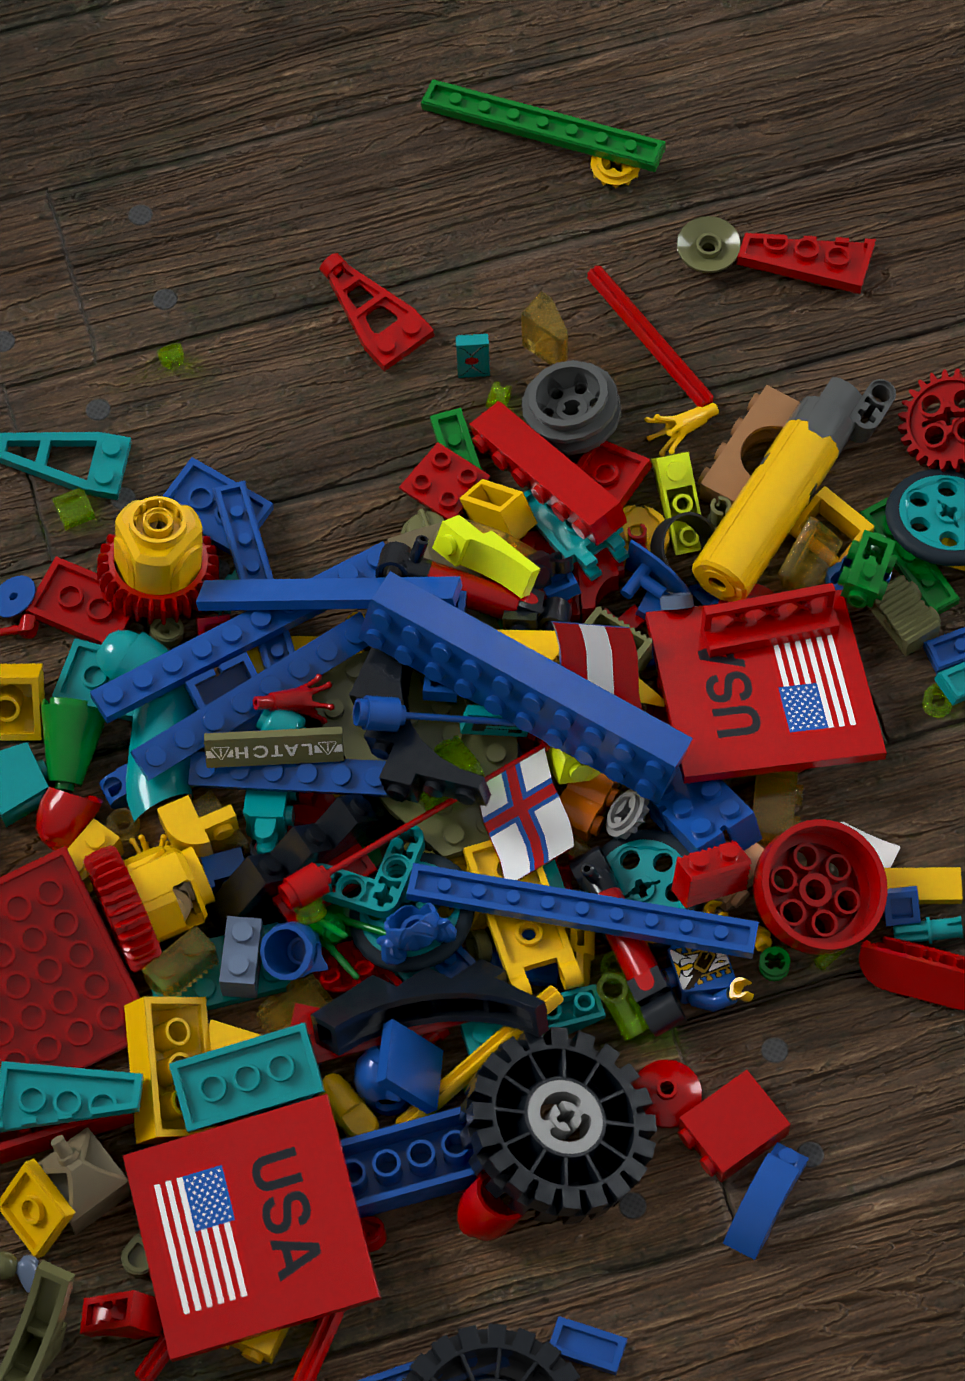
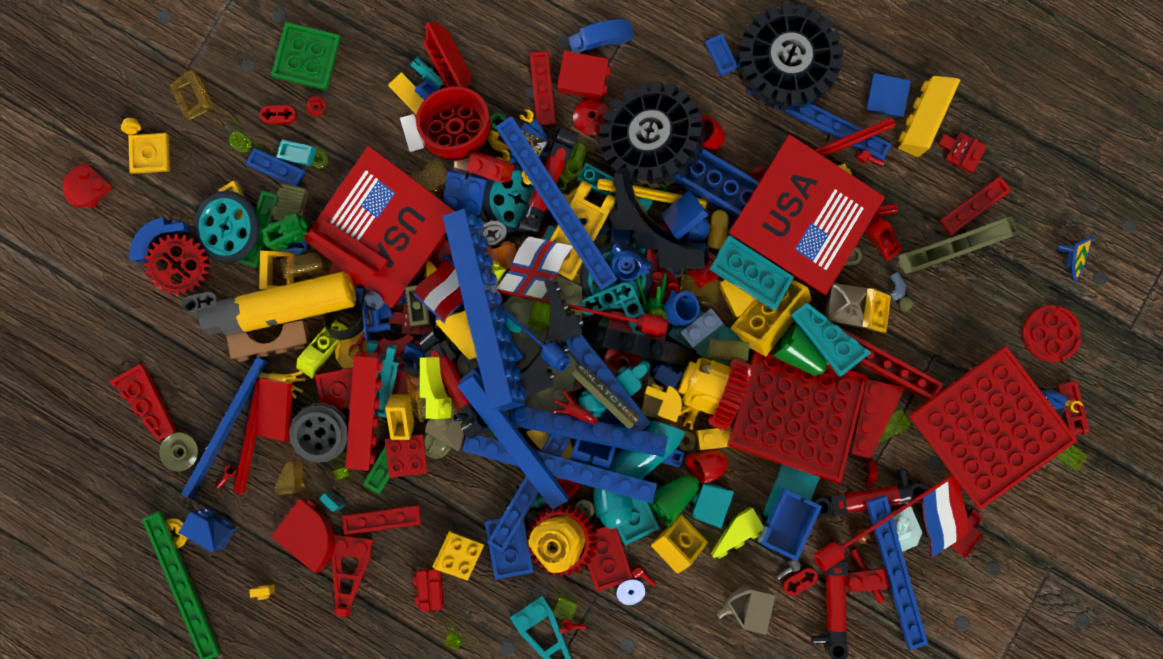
camera: 135 degrees left, 20 degrees up
(49, 492) = (568, 626): none -> red hand
(90, 1045) = (799, 352): none -> green cone
(258, 378) = (430, 589): none -> red brick
(263, 440) = (458, 555): none -> yellow plate
(396, 398) = (381, 519): none -> red tile
(447, 202) = (262, 592): none -> yellow plate
(461, 297) = (307, 535): none -> red brick
(579, 198) = (207, 529): none -> blue slope
(627, 274) = (226, 476): none -> red hand
(653, 383) = (274, 409): none -> red tile
(688, 316) = (224, 428): none -> blue tile
(718, 510) = (317, 323): olive pin -> none
(768, 1062) = (542, 88): none -> red tile

